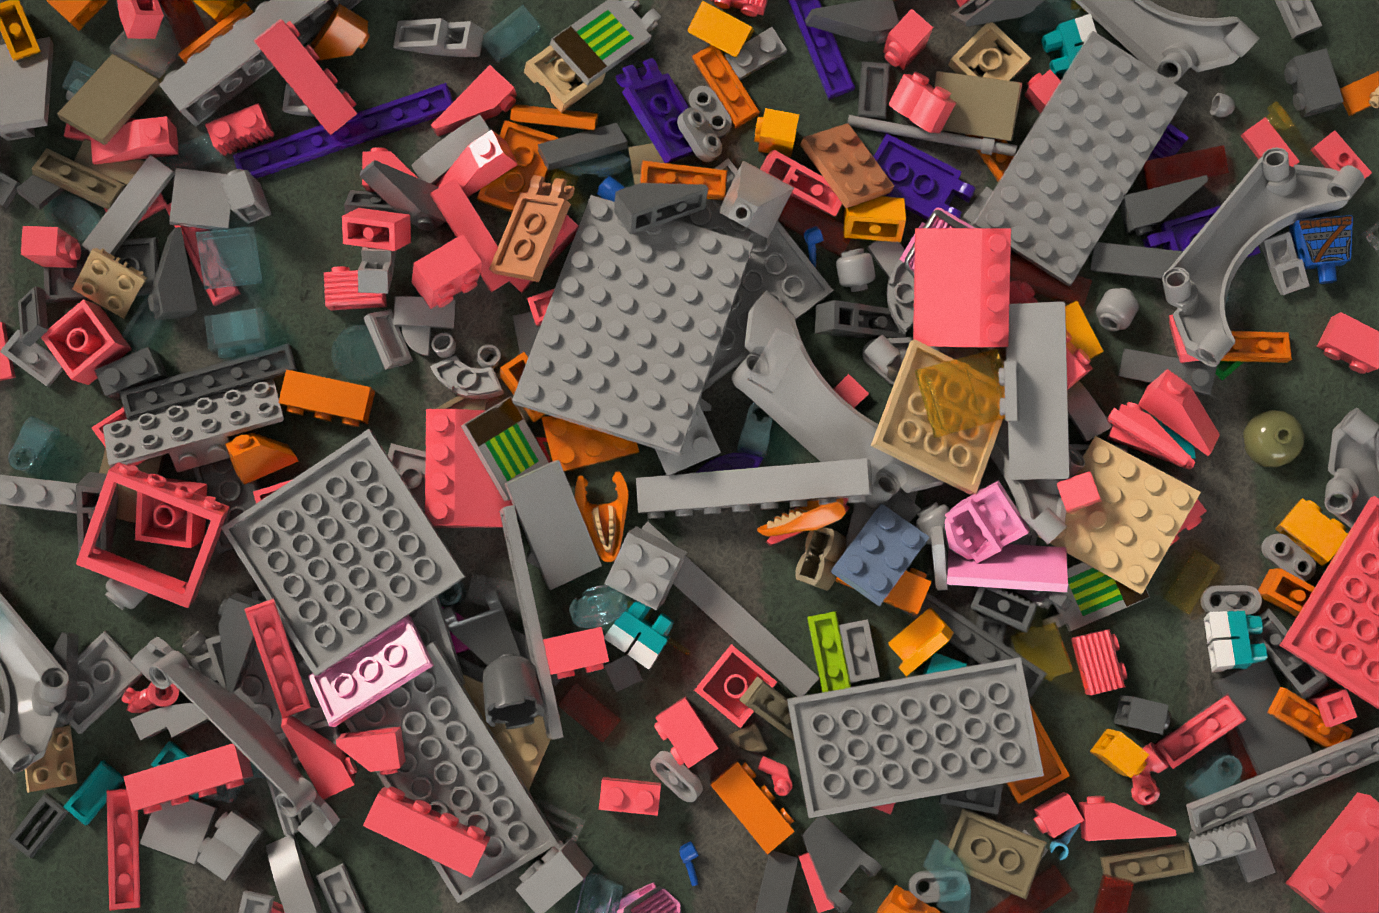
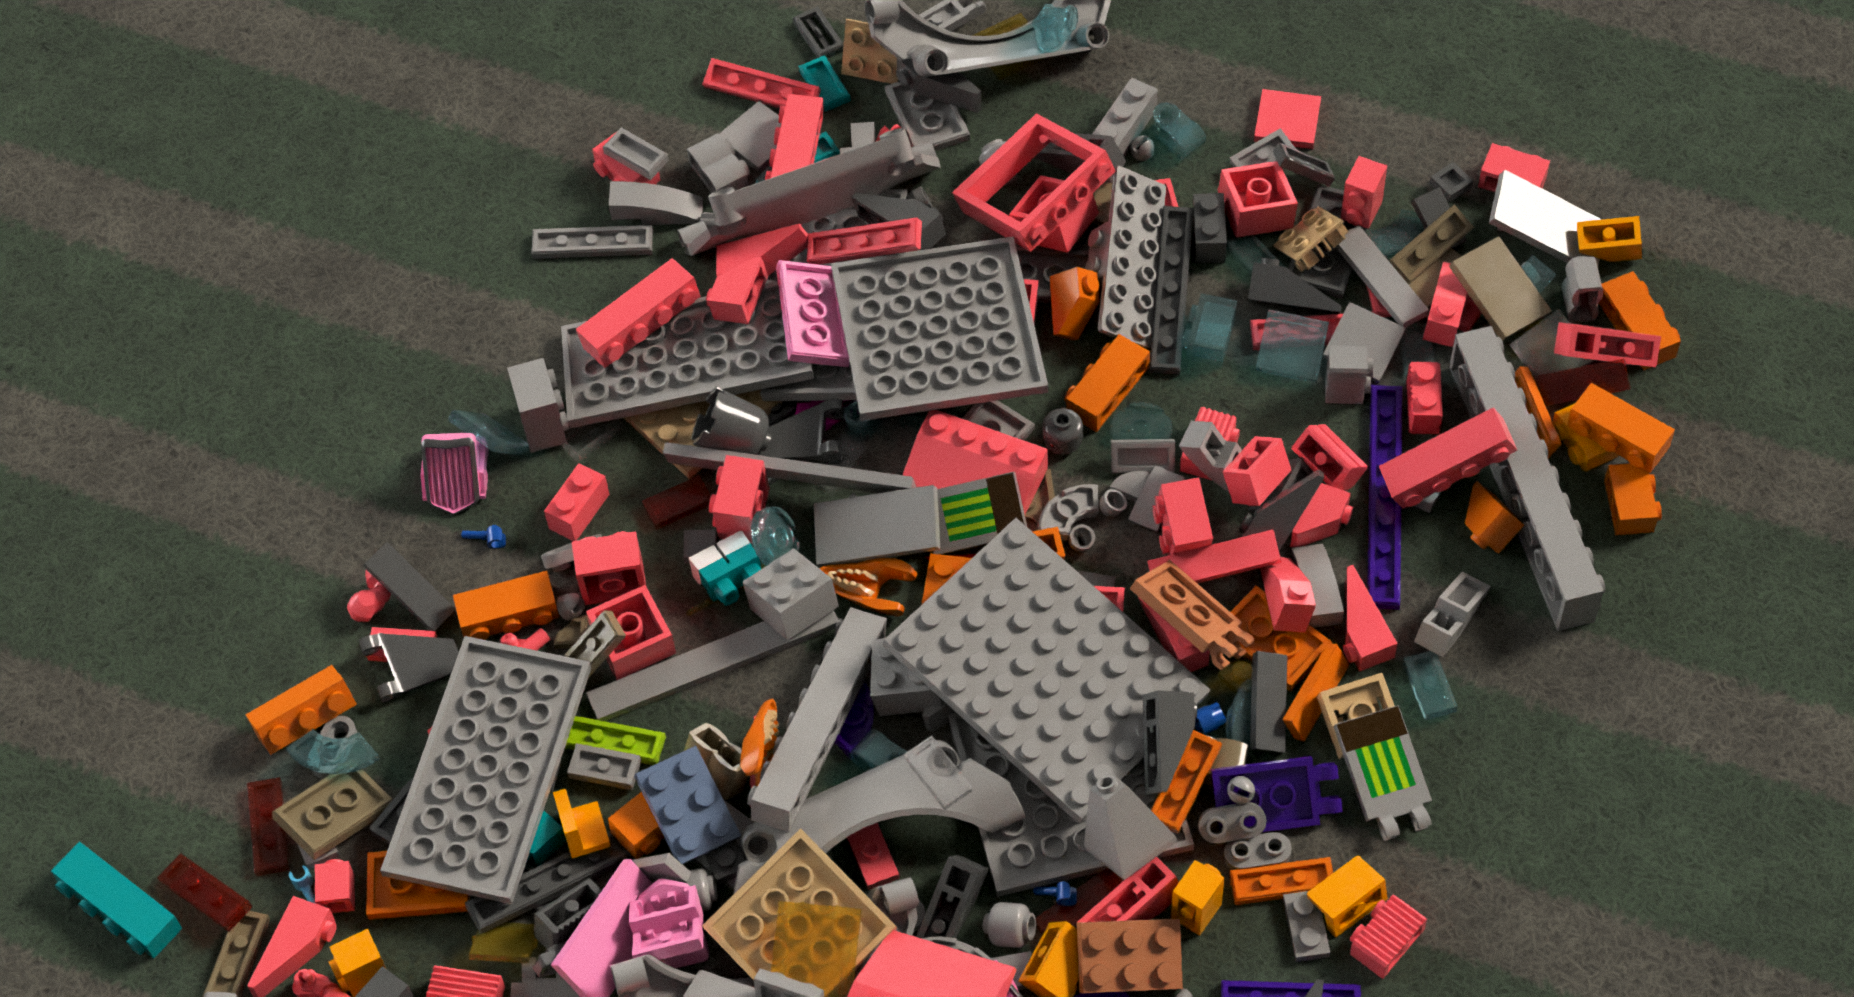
camera: 115 degrees right, 25 degrees down
(63, 464) = (1145, 151): none -> light grey hinge
(80, 35) = (1582, 289): none -> light grey brick
(331, 183) = (1329, 454): none -> coral brick
(401, 417) = (1062, 431): none -> dark grey head
(672, 131) = (1243, 783): none -> light grey hinge
(728, 752) = (570, 606): none -> light grey hinge

